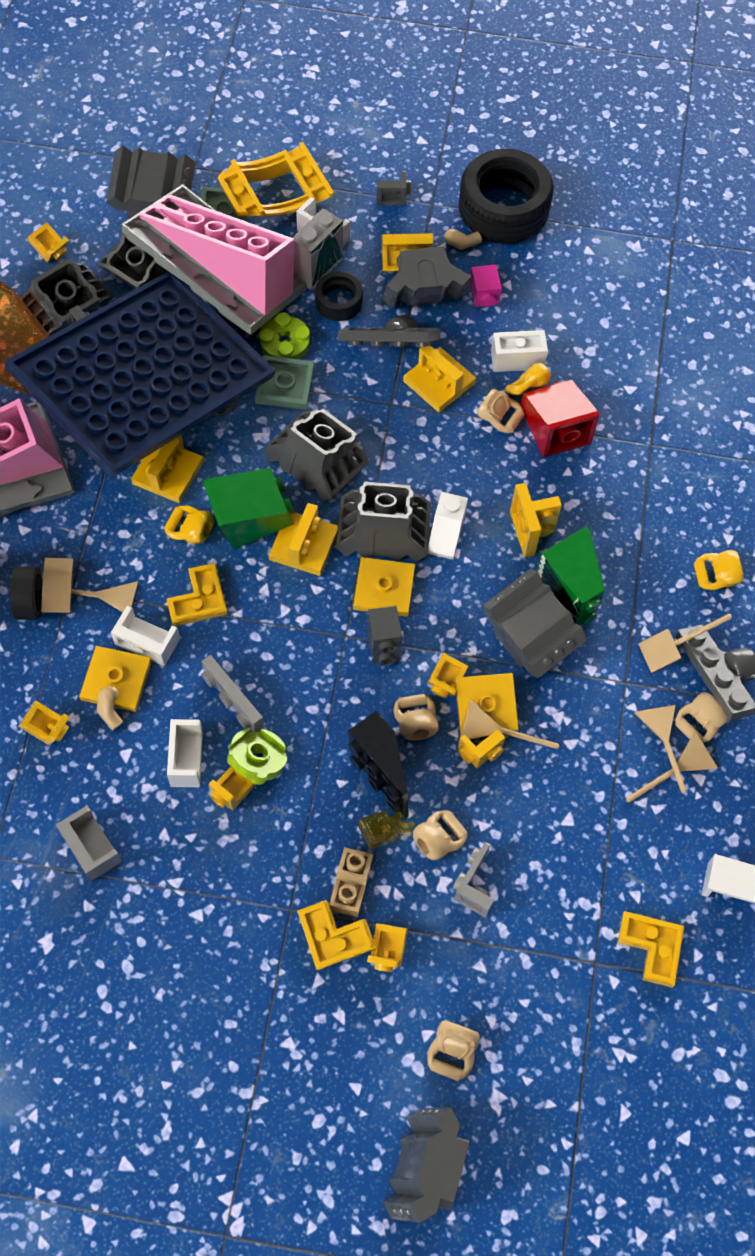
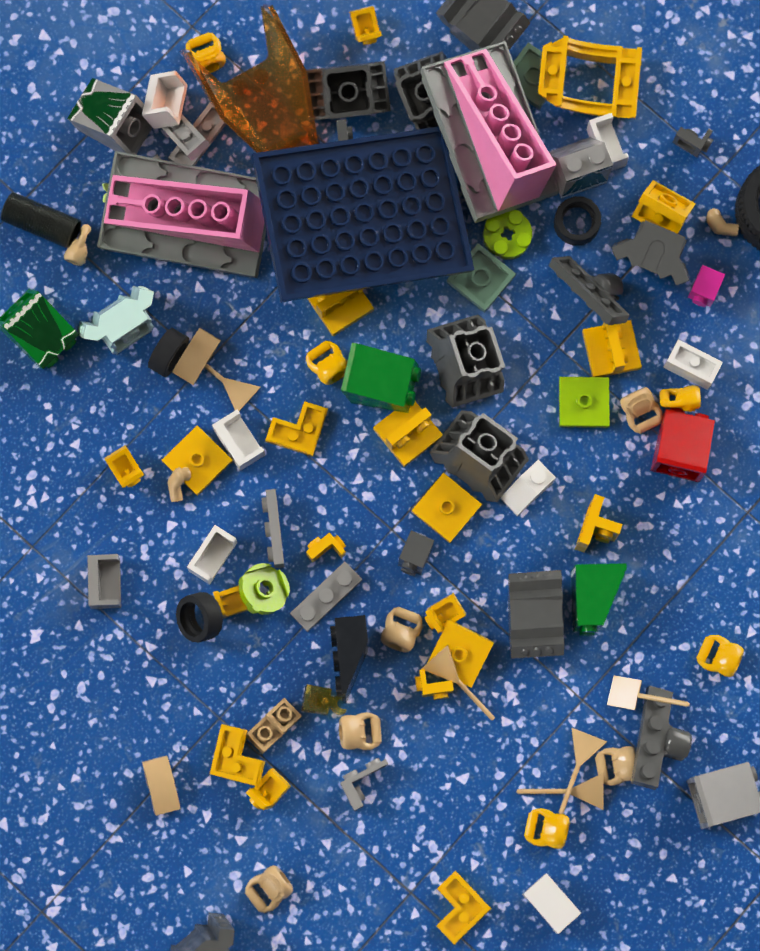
camera: 30 degrees right, 15 degrees up
(194, 827) = (211, 613): none -> black tyre
(274, 1012) = (161, 785): none -> tan slope
(287, 686) = (320, 546): none -> yellow bracket
(322, 730) = (326, 596): none -> light grey plate
(445, 433) = (584, 402): none -> lime plate
(688, 812) = (553, 831): none -> yellow piece

